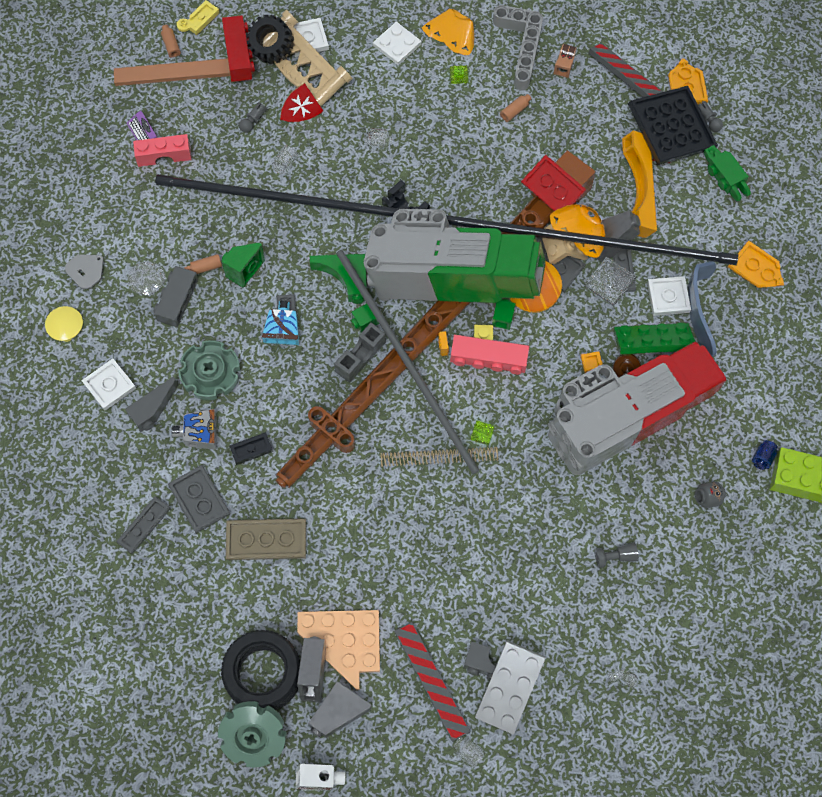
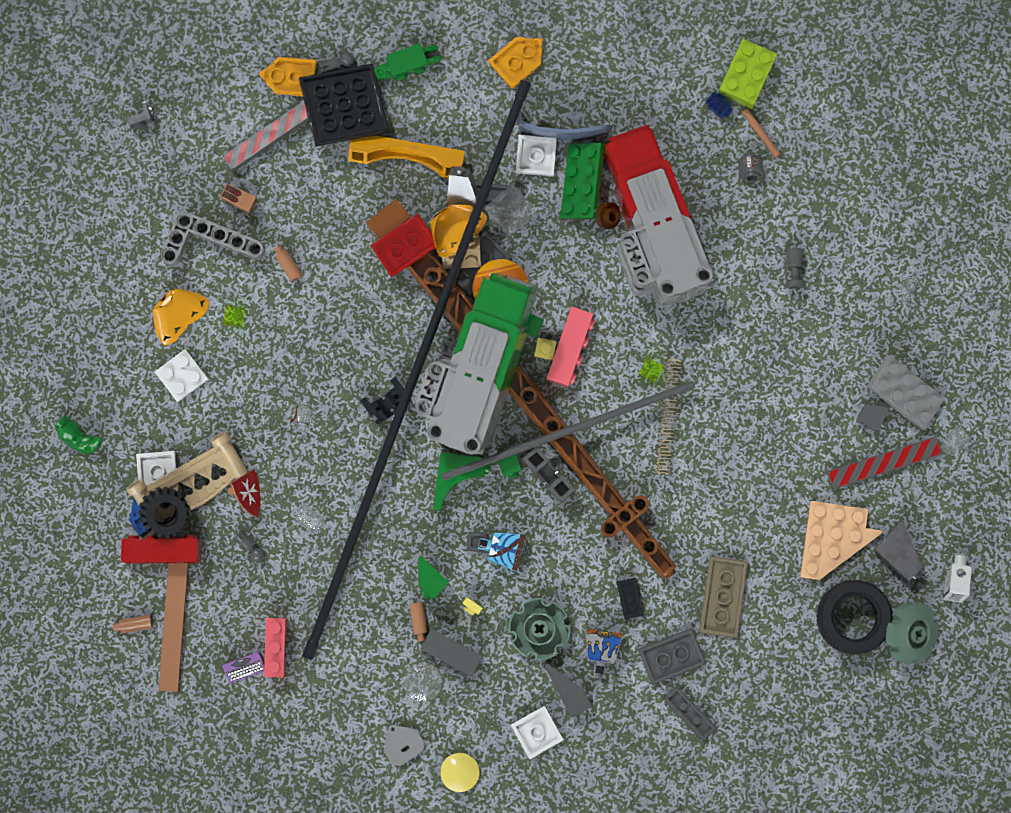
camera: 75 degrees left, 15 degrees up
(199, 18) = (110, 589): light yellow hinge -> none
(222, 307) = (471, 607): none -> light yellow plate
(312, 669) = (859, 569): flat silver slope -> none
(443, 343) = (551, 390): light orange tile -> none
(591, 361) = (593, 247): light orange tile -> none
(747, 501) = (761, 133): none -> nougat bar

